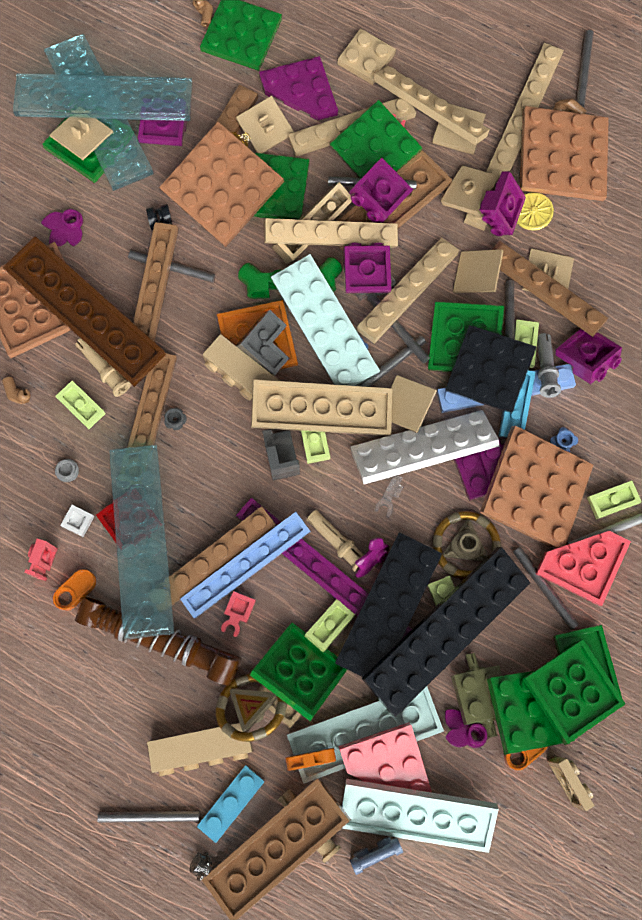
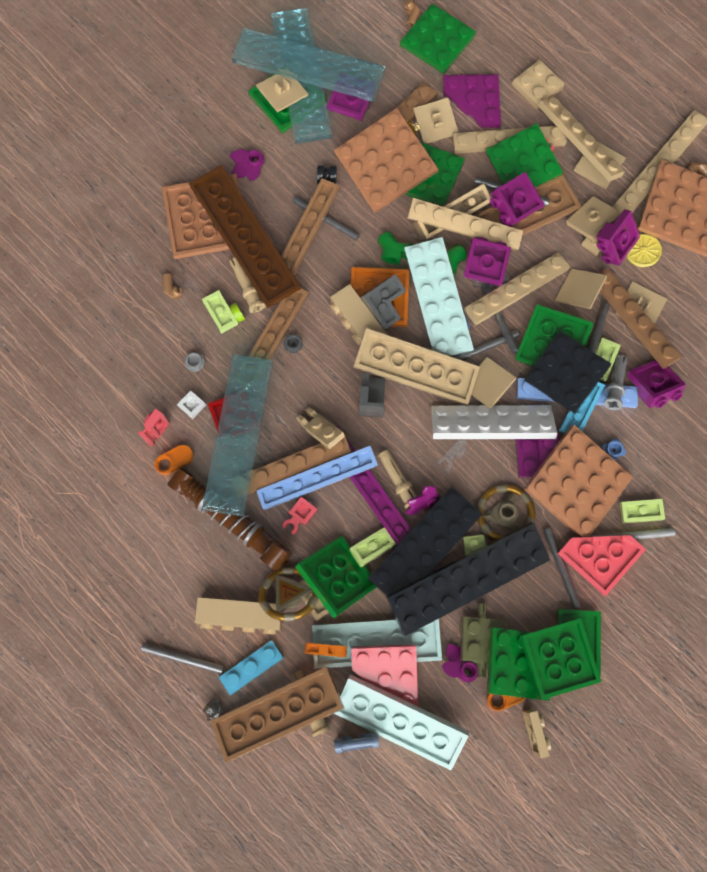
camera: 20 degrees right, 0 degrees up
(100, 400) = (237, 312): none -> lime tile
(234, 507) = (321, 428): none -> tan hinge
(315, 446) = (402, 397): yellowish green plate -> none

